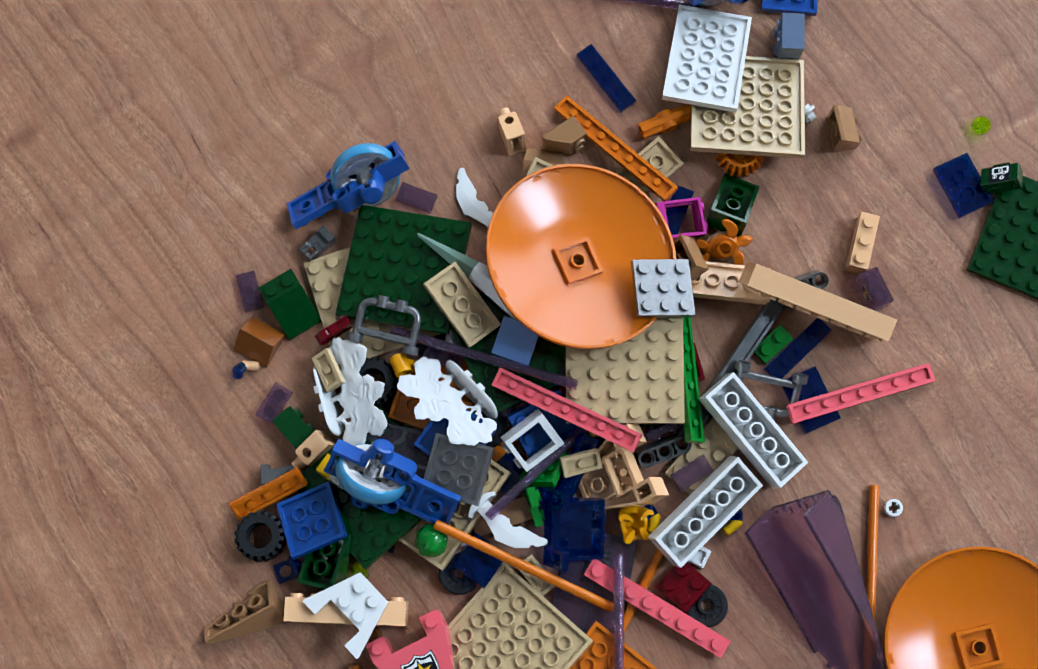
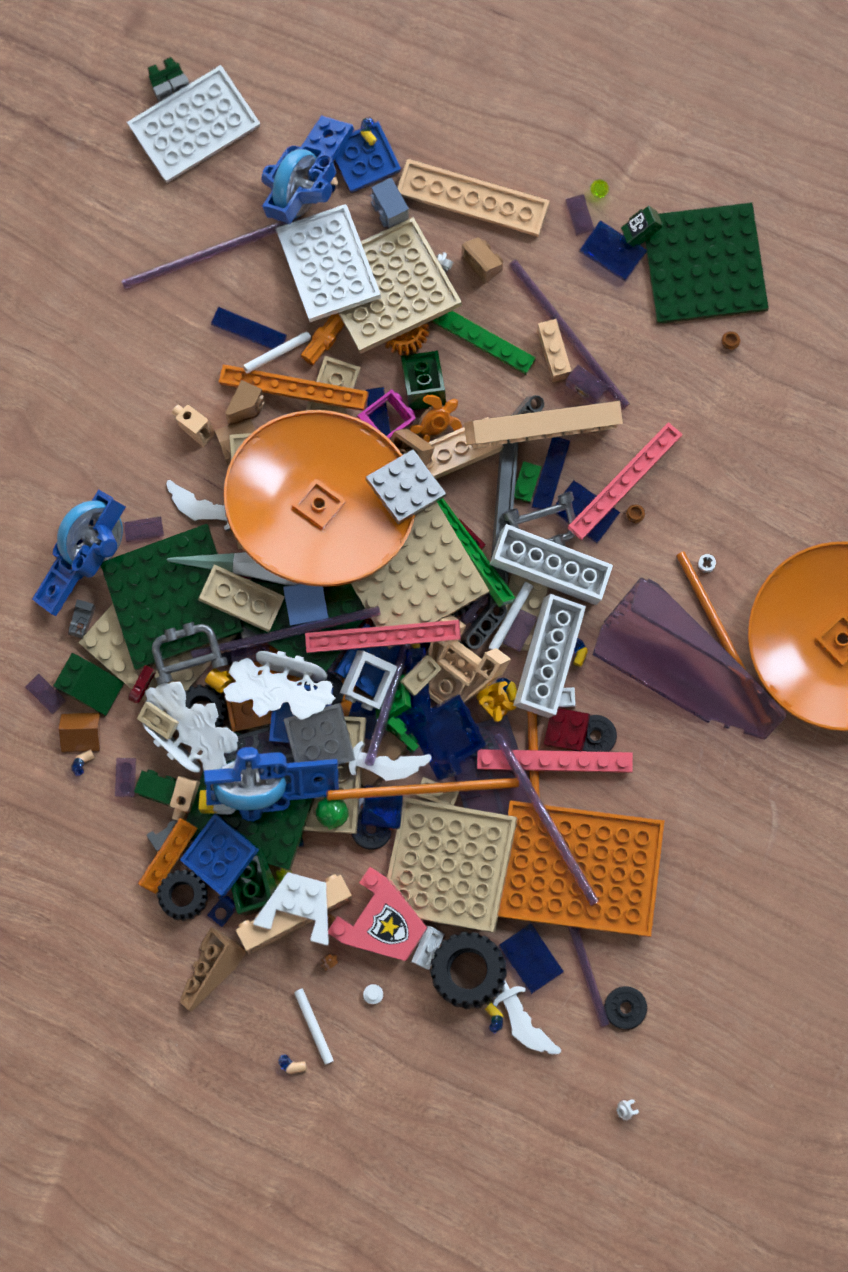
camera: 25 degrees left, 0 degrees up
(619, 110) = (276, 352): none -> white piece
(691, 455) = (511, 615): none -> white piece
(806, 201) = (486, 341): none -> green plate
(853, 427) = (635, 513): none -> dark orange plate
(865, 72) = (473, 197): none -> light nougat plate
(883, 234) = (568, 333): none -> clear purple piece
(951, 138) = (579, 214): none -> clear purple plate
(1025, 322) = (730, 340): none -> dark orange plate

